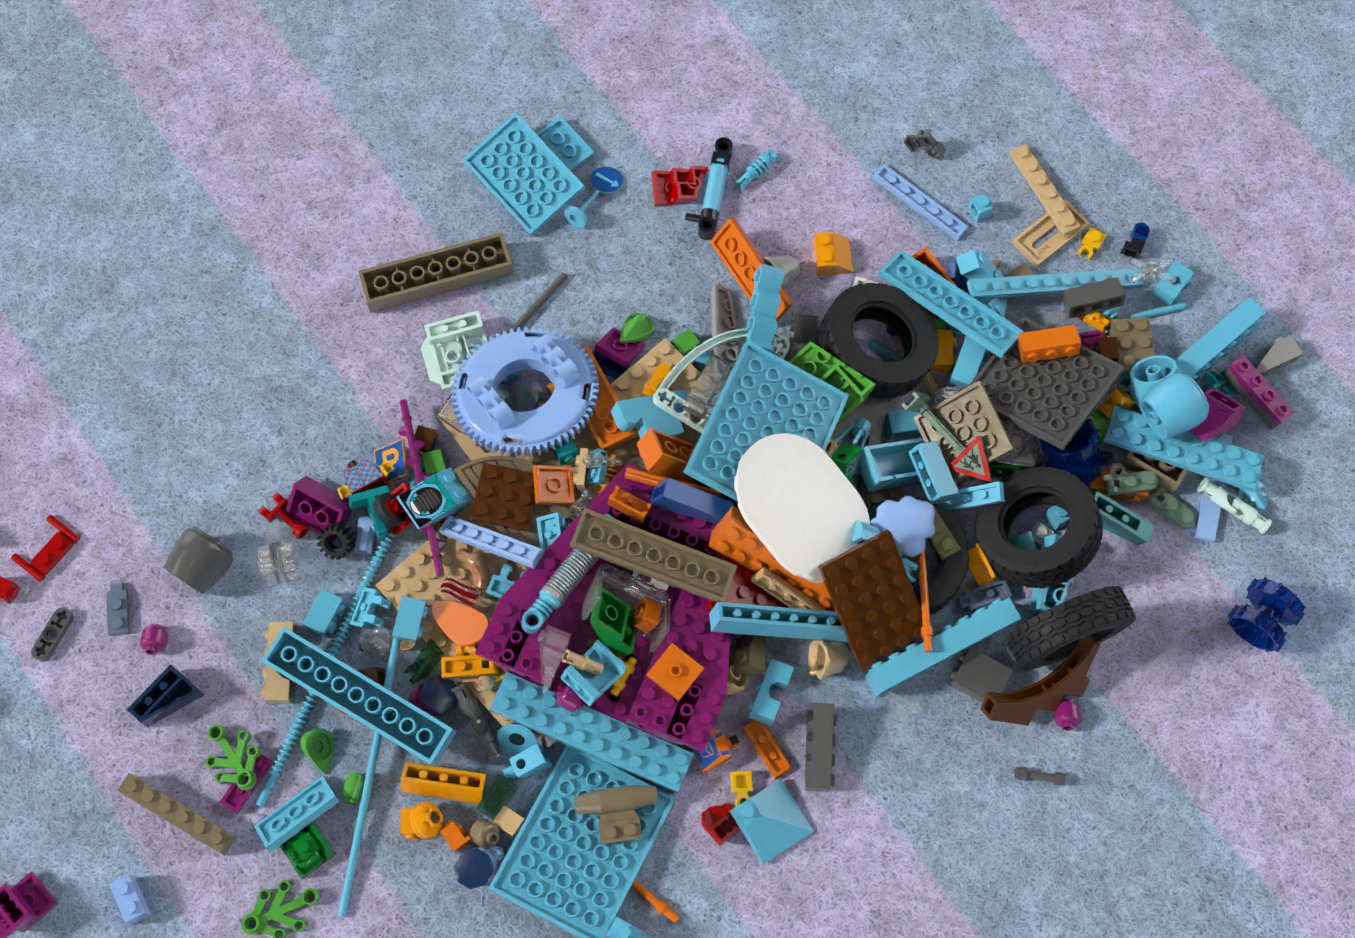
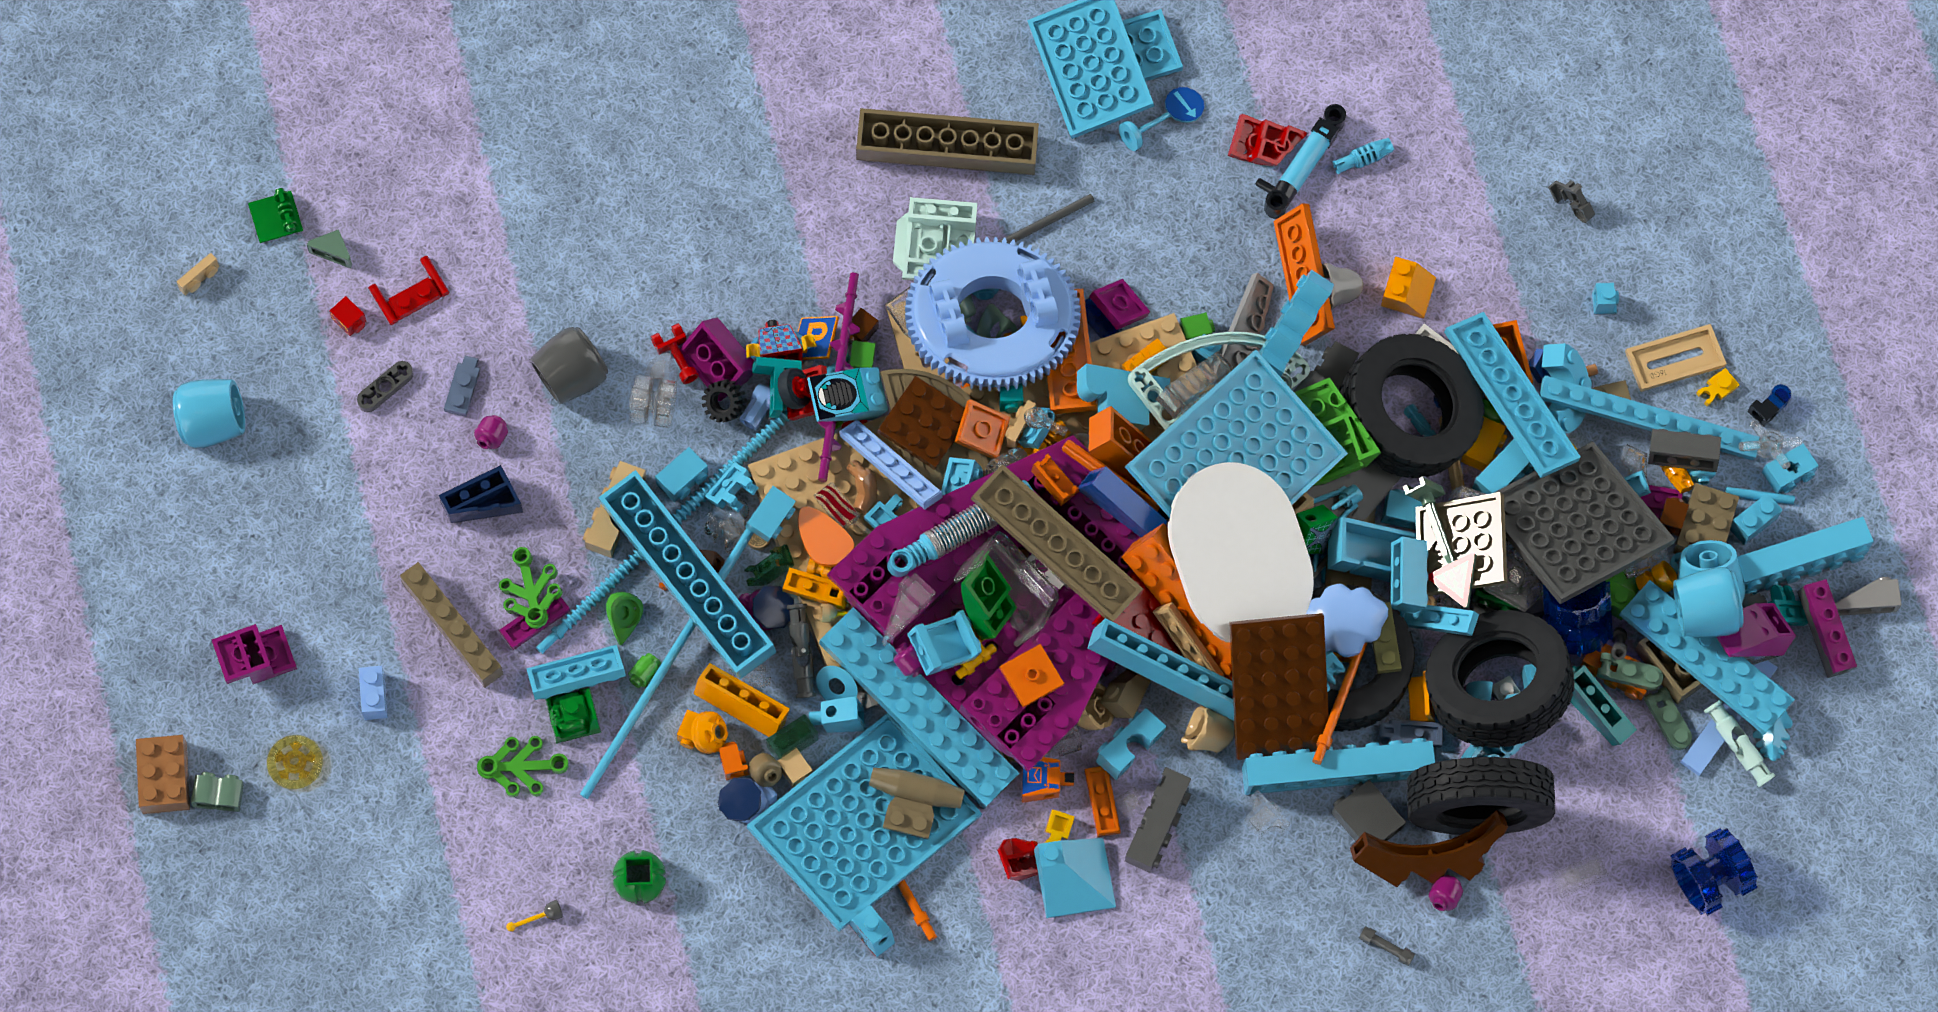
camera: 20 degrees right, 0 degrees up
(582, 662) = (936, 626): tan pin -> none
(636, 328) = (1148, 290): bright green piece -> none
(647, 614) = (1026, 604): orange brick -> none
(863, 532) = (1297, 606): medium azure brick -> none
(920, 202) = (1539, 265): light blue tile -> none
(1045, 190) = (1690, 305): tan plate -> none
(1048, 344) = (1601, 482): orange brick -> none
(1166, 329) = (1755, 518): none -> medium azure brick

